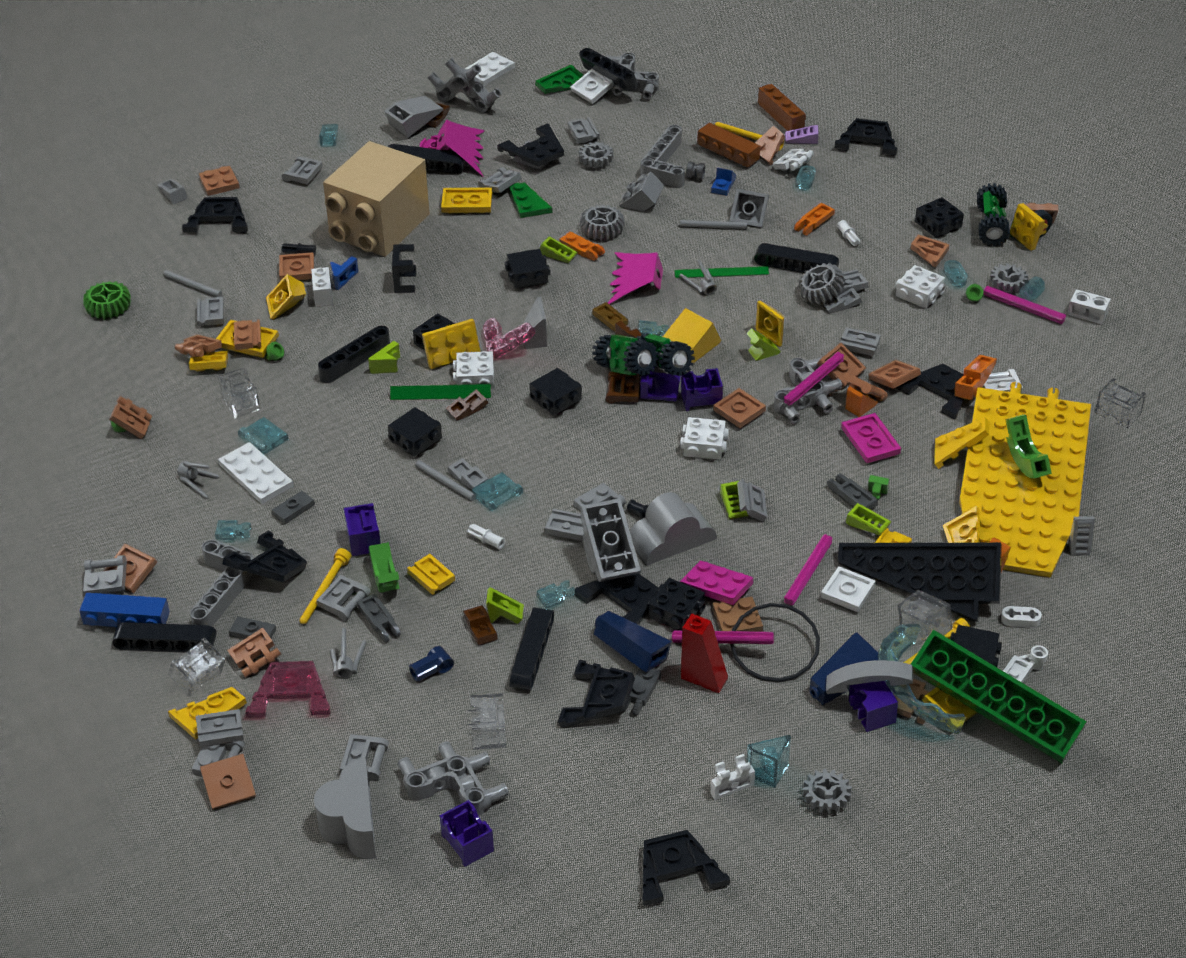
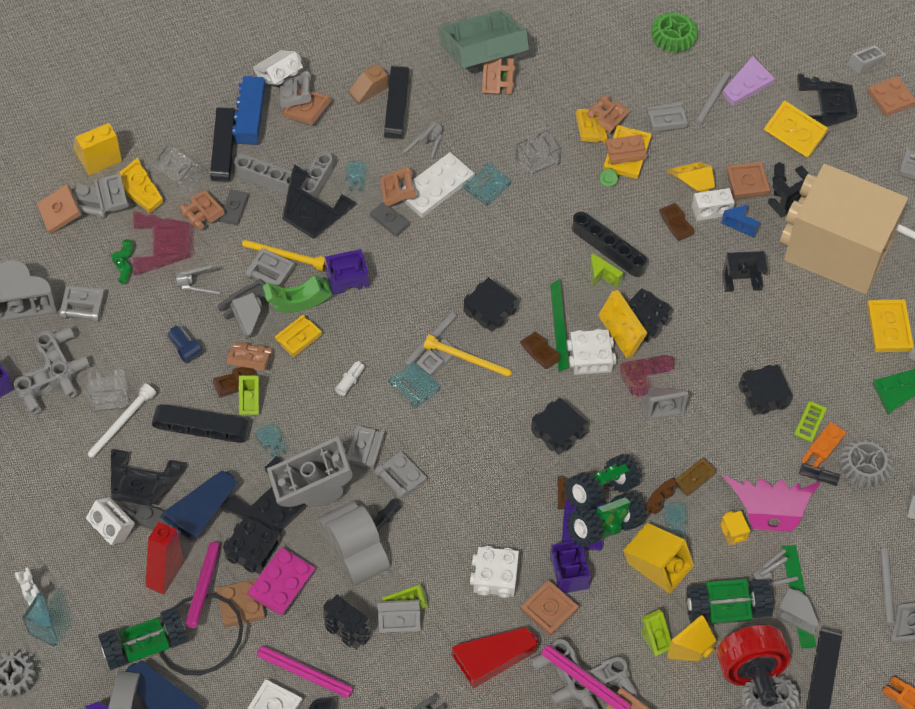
camera: 85 degrees right, 15 degrees up
(71, 583) = (278, 67): none -> white brick
(85, 417) = (483, 38): none -> sand green tile
(112, 516) = (369, 84): none -> medium nougat slope
(141, 497) = (396, 102): none -> black beam
(147, 743) = (97, 149): none -> yellow slope
(179, 260) = (747, 82): none -> lavender wing
(248, 231) = (796, 129): none -> yellow plate
(257, 499) = (392, 189): none -> nougat plate
(297, 722) = (125, 251): none -> green arm
(322, 721) = (124, 269): none -> green arm
(324, 234) = (787, 193): none -> black panel
(330, 315) = (676, 222): none -> reddish brown slope
(404, 607) = (246, 312): none -> light grey slope
(454, 608) = (249, 356): none -> nougat plate
(456, 470) = (432, 343): none -> yellow piece
(526, 718) = (146, 393): none -> white piece
(611, 248) = (819, 474): none -> black axle
(649, 710) = (110, 520): none -> white brick
(661, 296) = (734, 527): none -> yellow brick
(734, 299) = (730, 601): none -> plate
(739, 267) = (798, 611): none -> light grey slope
(763, 530) = (346, 622): none -> black brick
(785, 679) = (143, 639): none -> plate
(788, 442) = (494, 654): none -> red slope
(793, 279) = (755, 655): none -> red wheel

